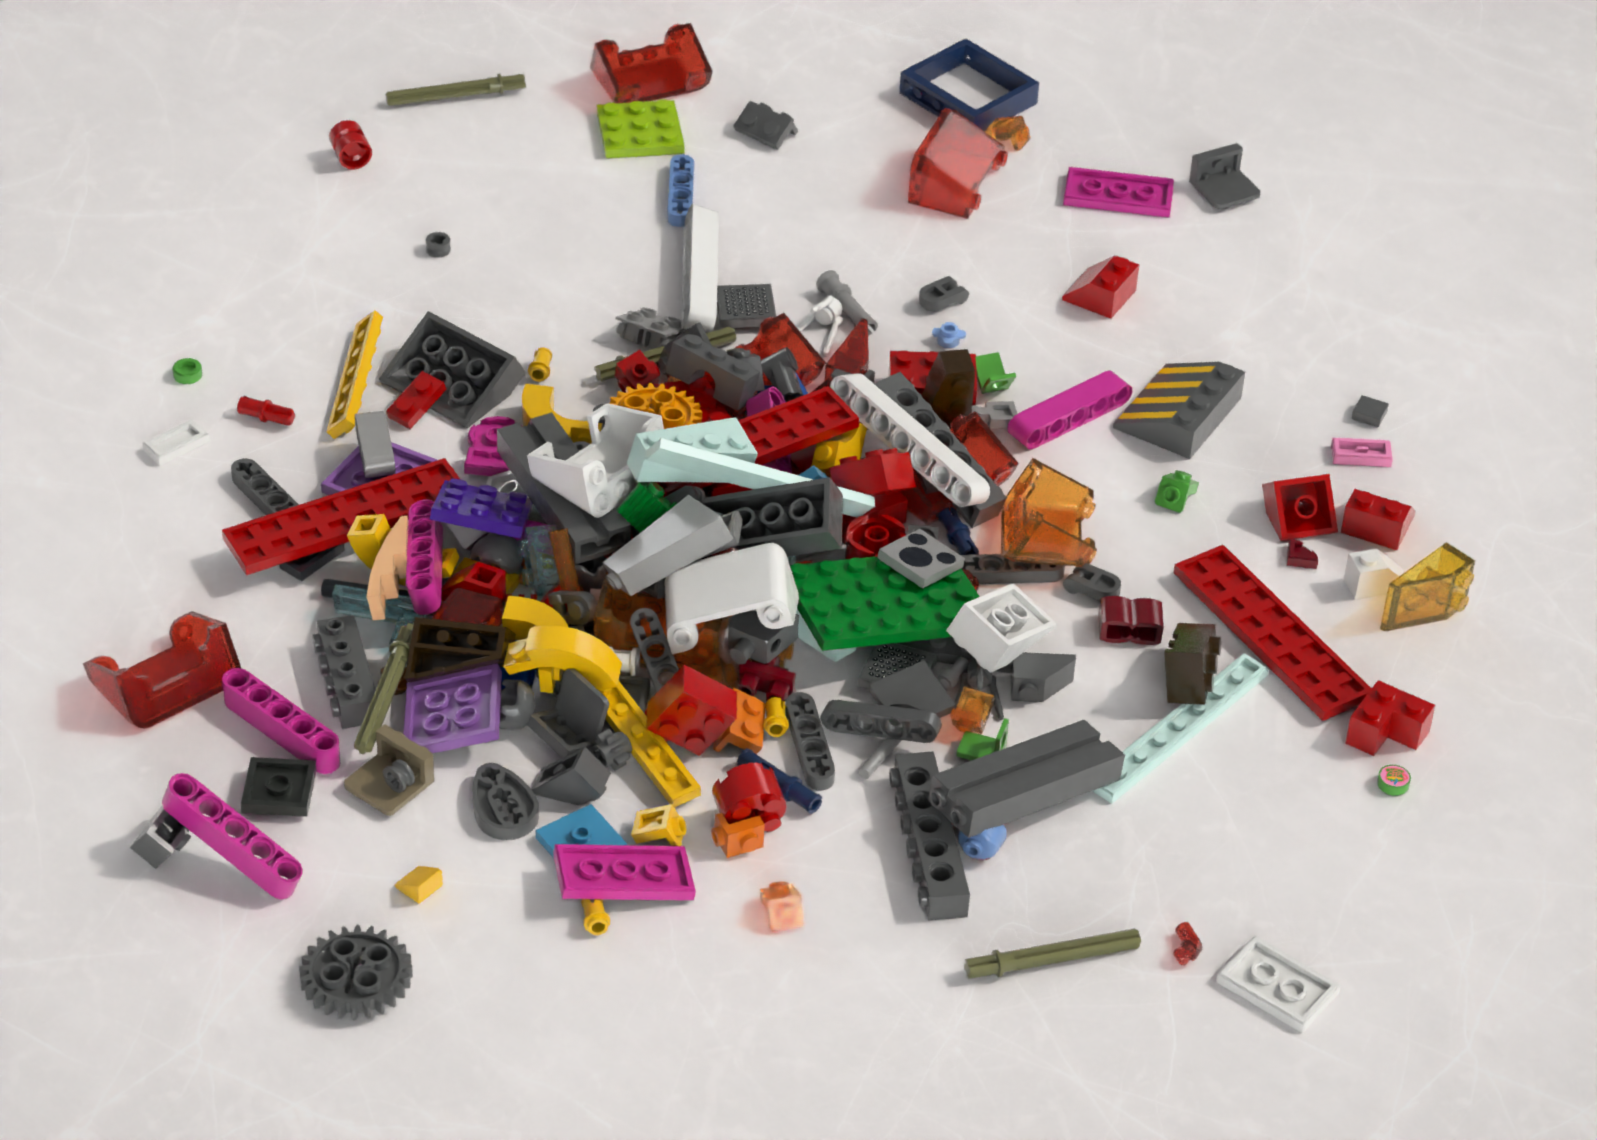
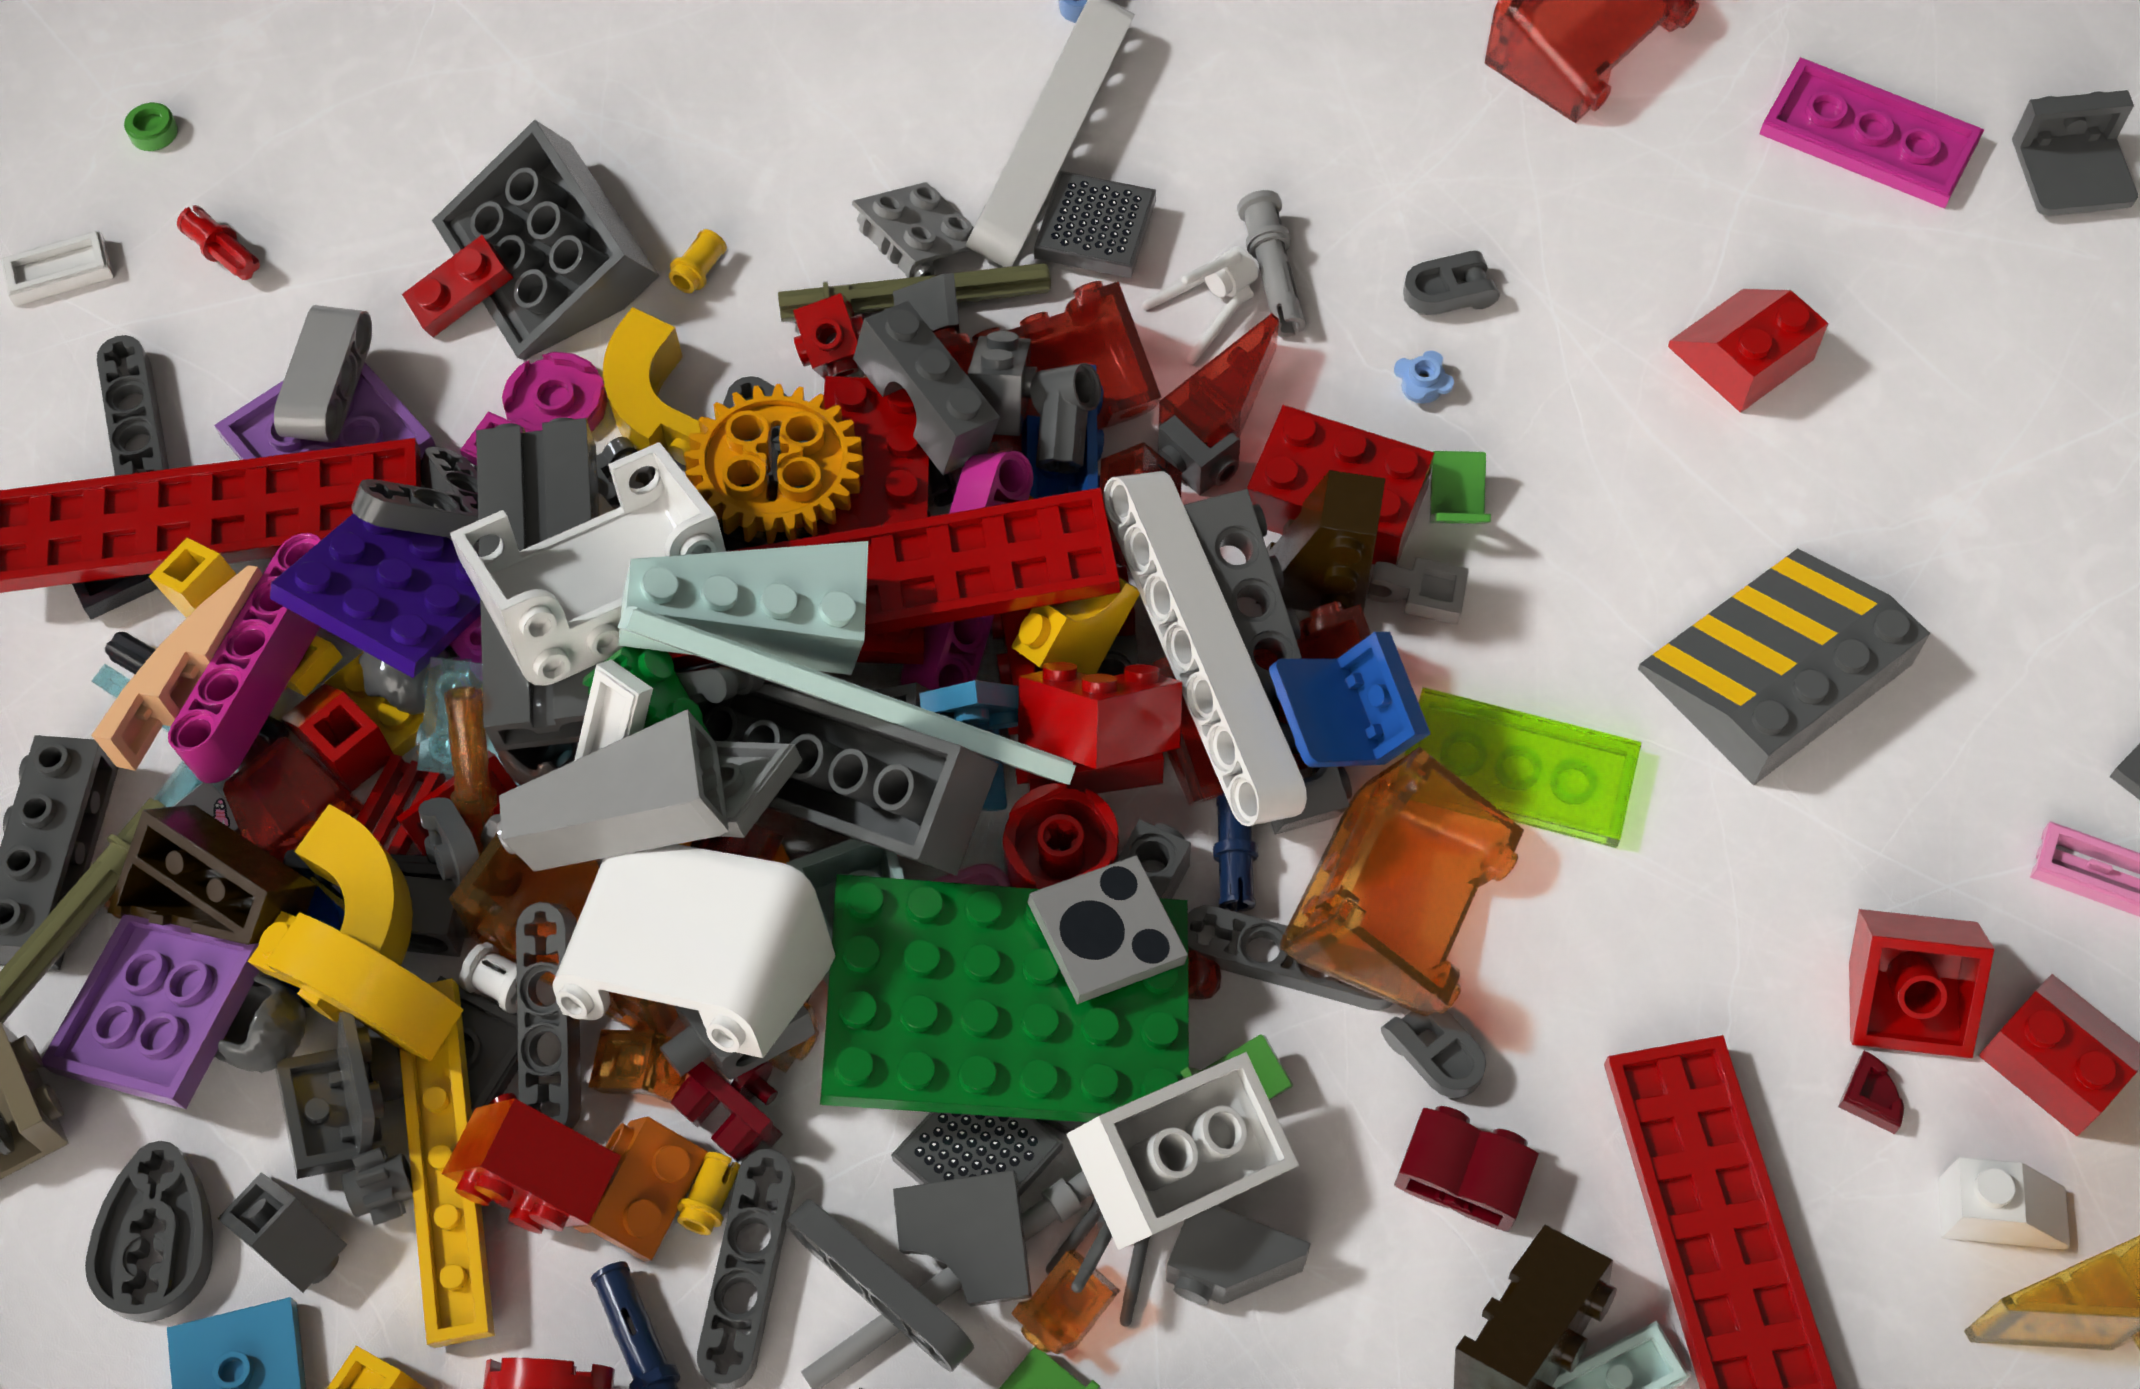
camera: 25 degrees right, 20 degrees up
(354, 375) = (402, 192): yellow plate -> none
(480, 476) = (438, 509): none -> dark grey beam
(643, 511) = (614, 708): none -> white tile
(994, 447) = (1350, 706): none -> blue bracket
(1069, 409) = (1567, 614): dark pink beam -> none
(1103, 471) = (1534, 765): none -> clear neon green tile
(1175, 490) = (1690, 865): bright green bracket -> none

